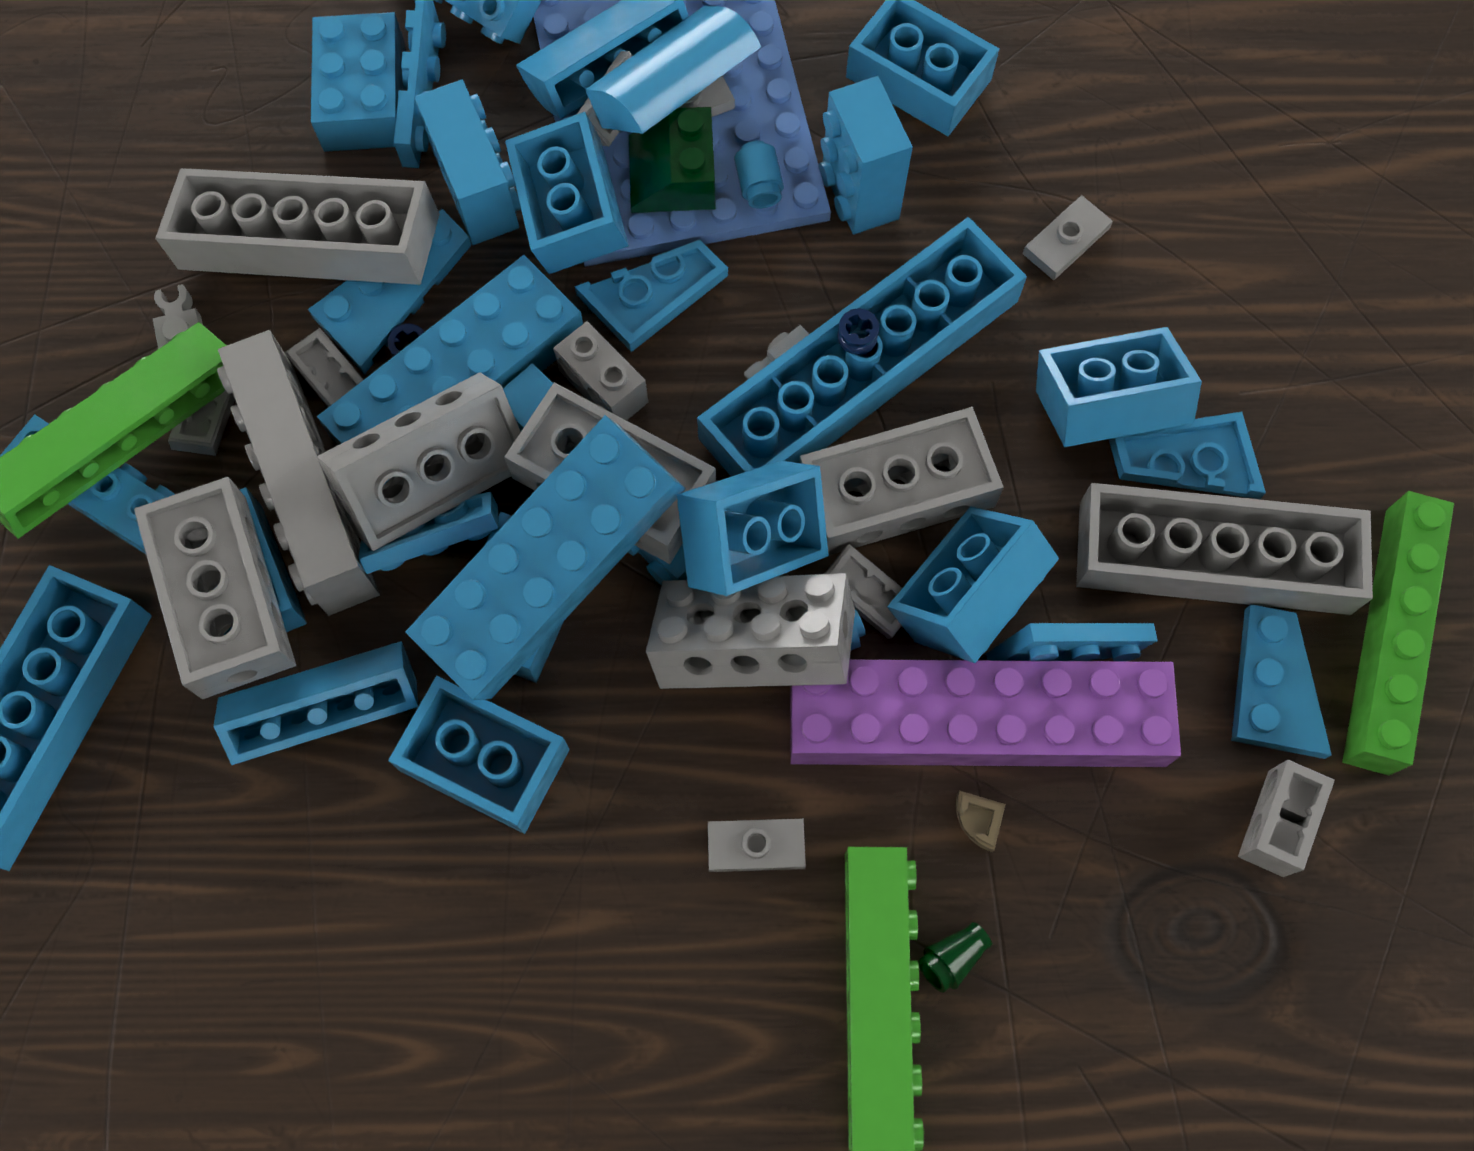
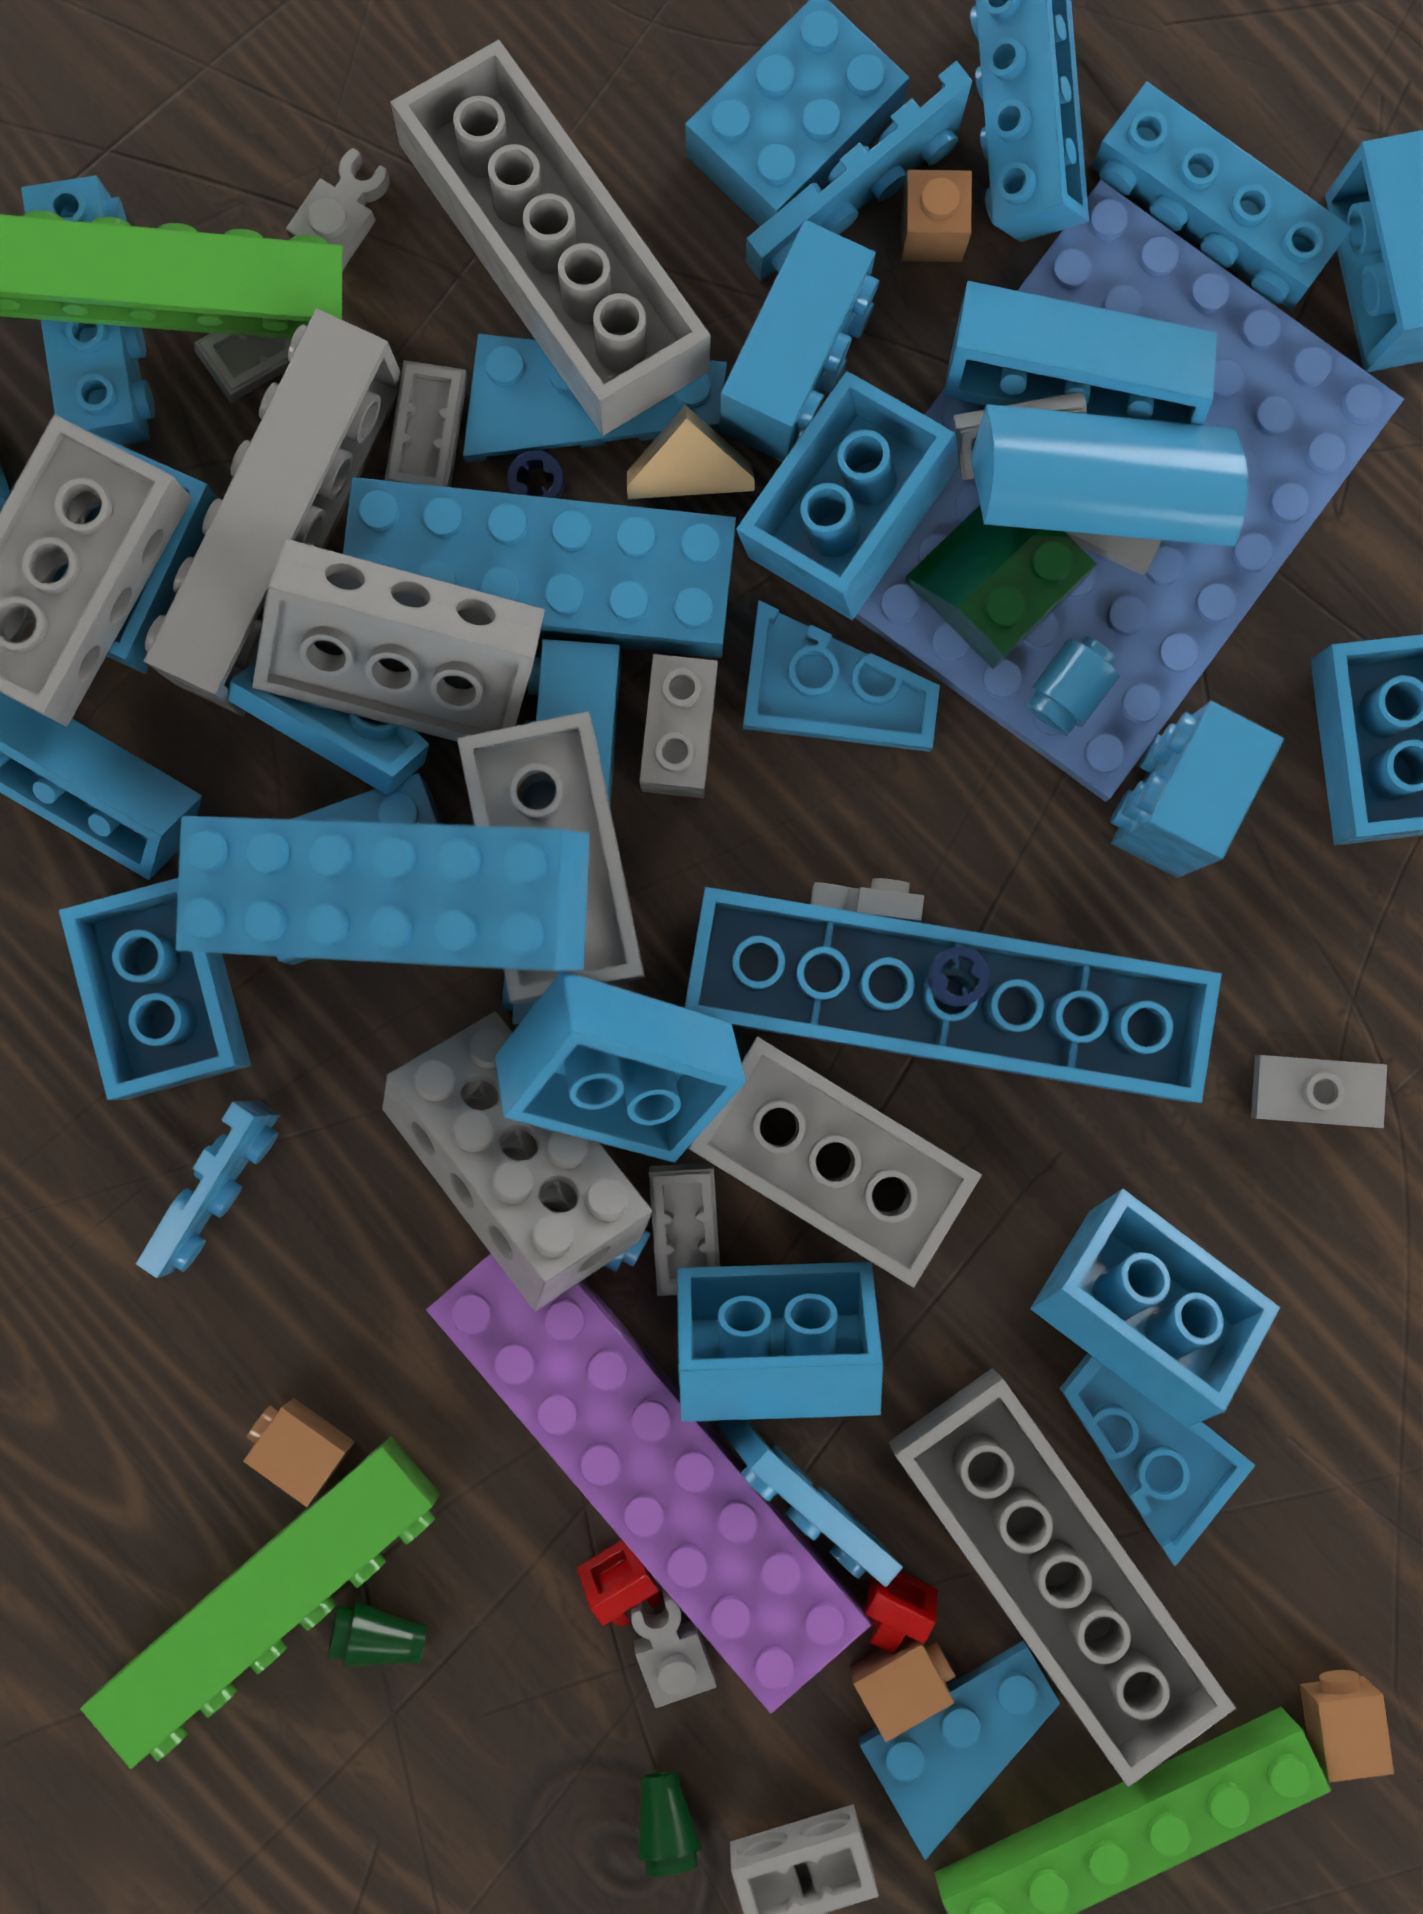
camera: 45 degrees right, 15 degrees up
(470, 57) = (936, 215): none -> medium nougat brick
(470, 259) = (688, 461): none -> tan slope
(620, 823) = (177, 1236): none -> dark azure wing
(756, 845) = (317, 1341): light grey plate -> none
(808, 905) = (296, 1450): none -> medium nougat brick
(980, 818) = (543, 1546): dark tan tile -> none
(1036, 788) = (616, 1583): none -> red tile
(1102, 795) = (671, 1654): none -> light grey plate
(1179, 649) = (900, 1610): none -> red tile
(1201, 882) = (666, 1827): none -> dark green cone
(1219, 683) = (903, 1685): none -> medium nougat brick
(1423, 472) = (1347, 1726): none -> medium nougat brick

